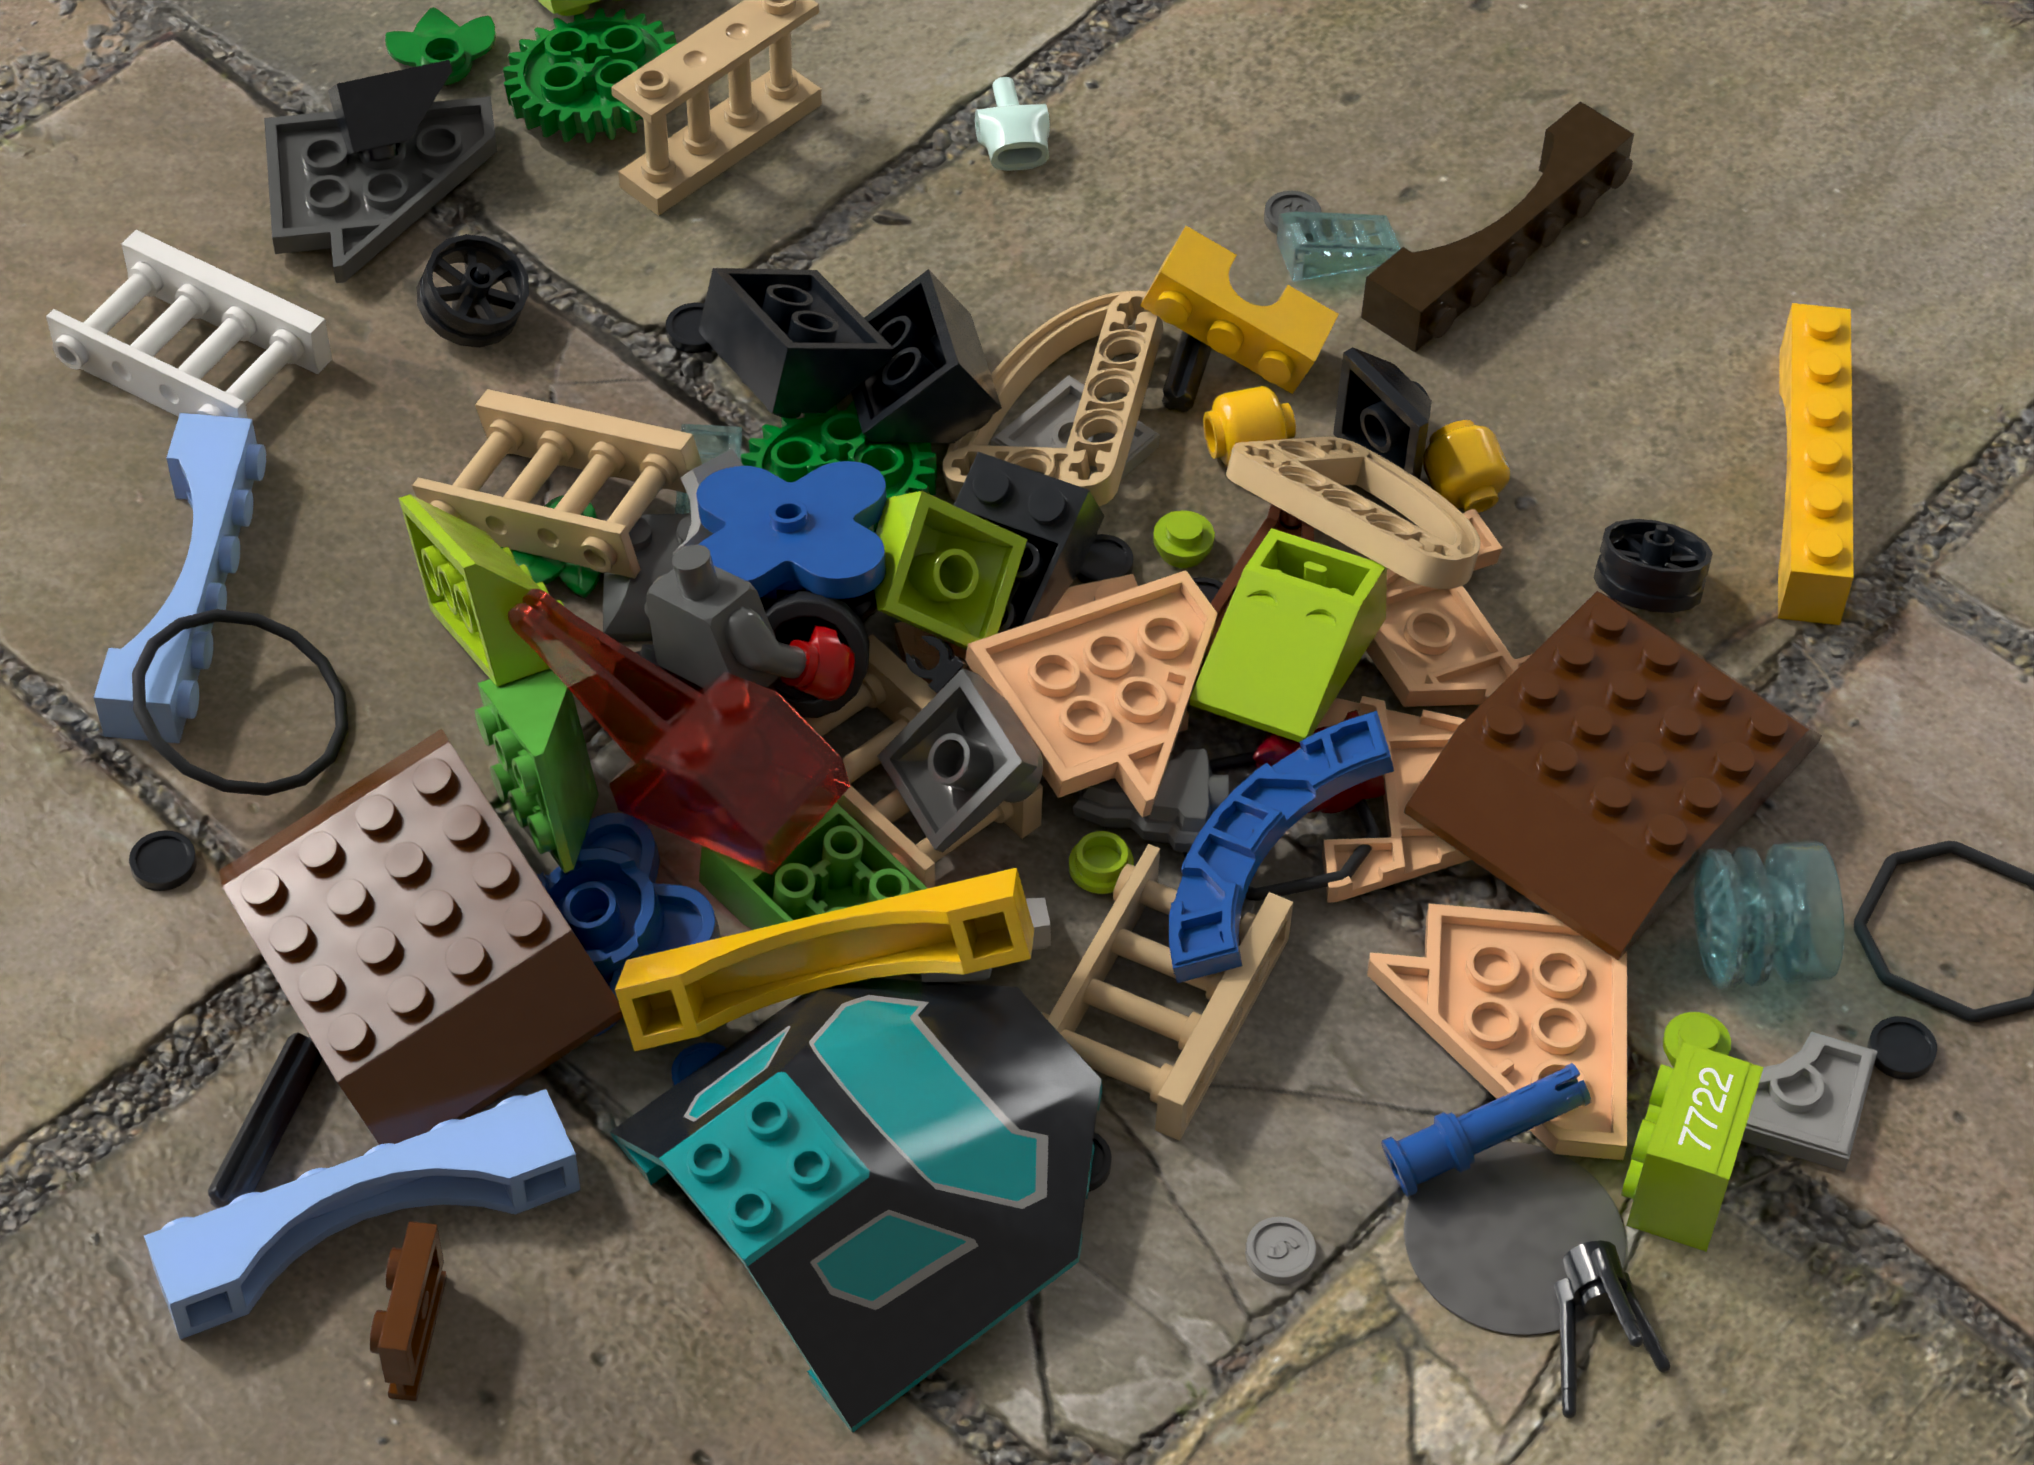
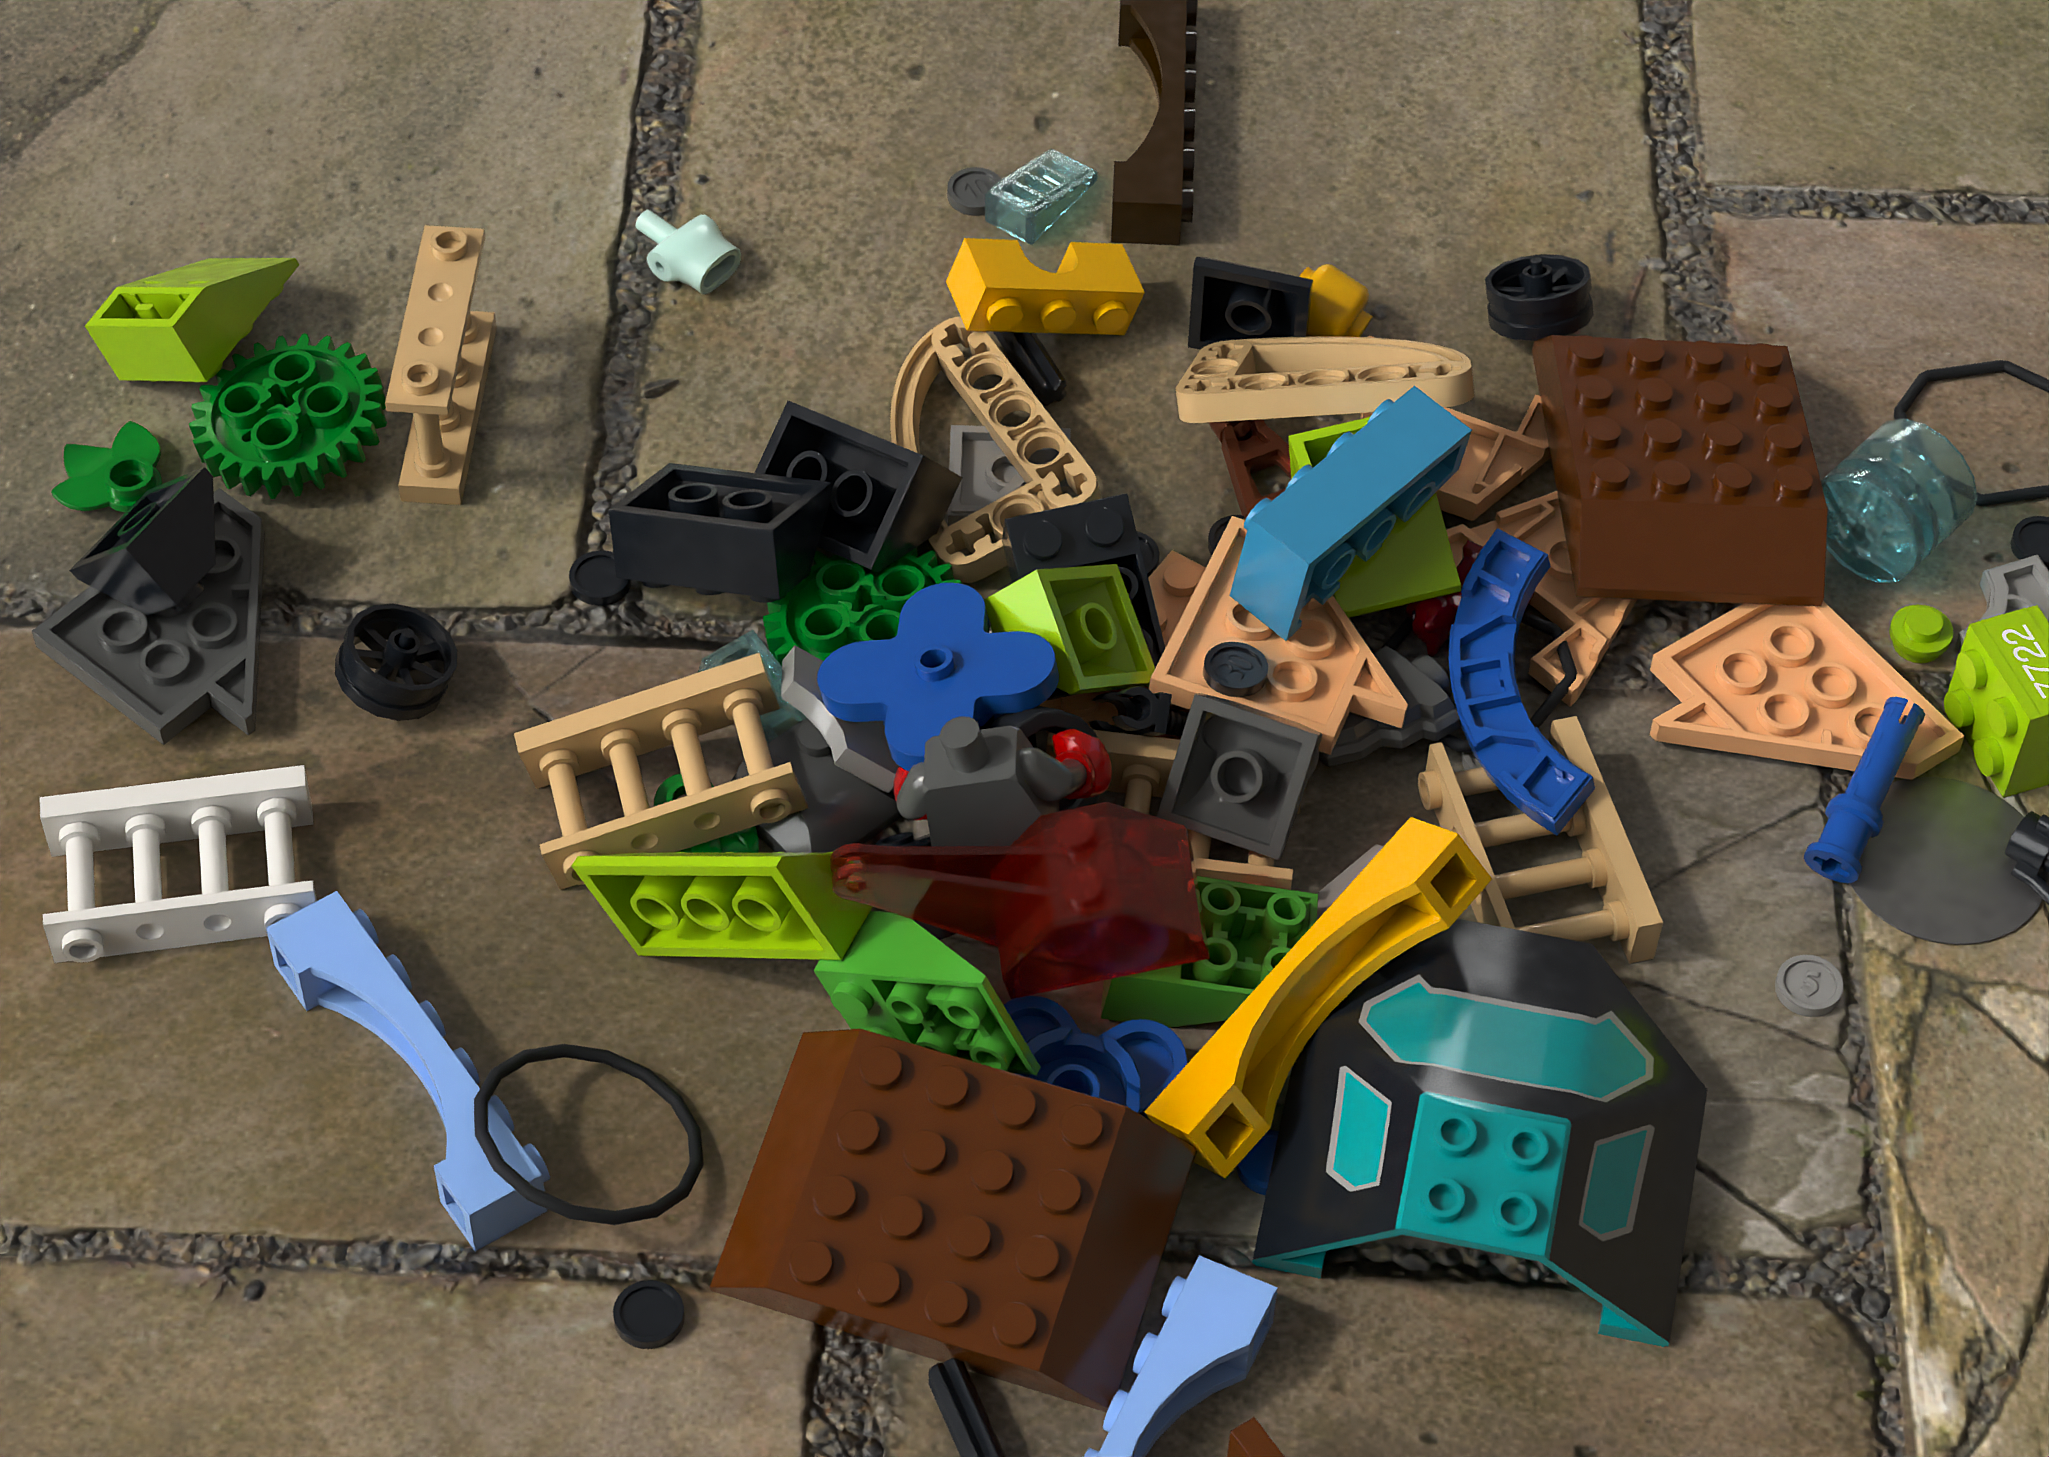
camera: 40 degrees left, 0 degrees up
(1040, 680) = (1235, 669): none -> black piece
(1099, 861) = (1387, 788): lime plate -> none
(1183, 538) = (1175, 498): lime plate -> none
(1236, 602) = (1344, 507): none -> dark azure wedge
(1246, 417) = (1139, 378): yellow head -> none
(1818, 509) = (1630, 207): yellow arch -> none

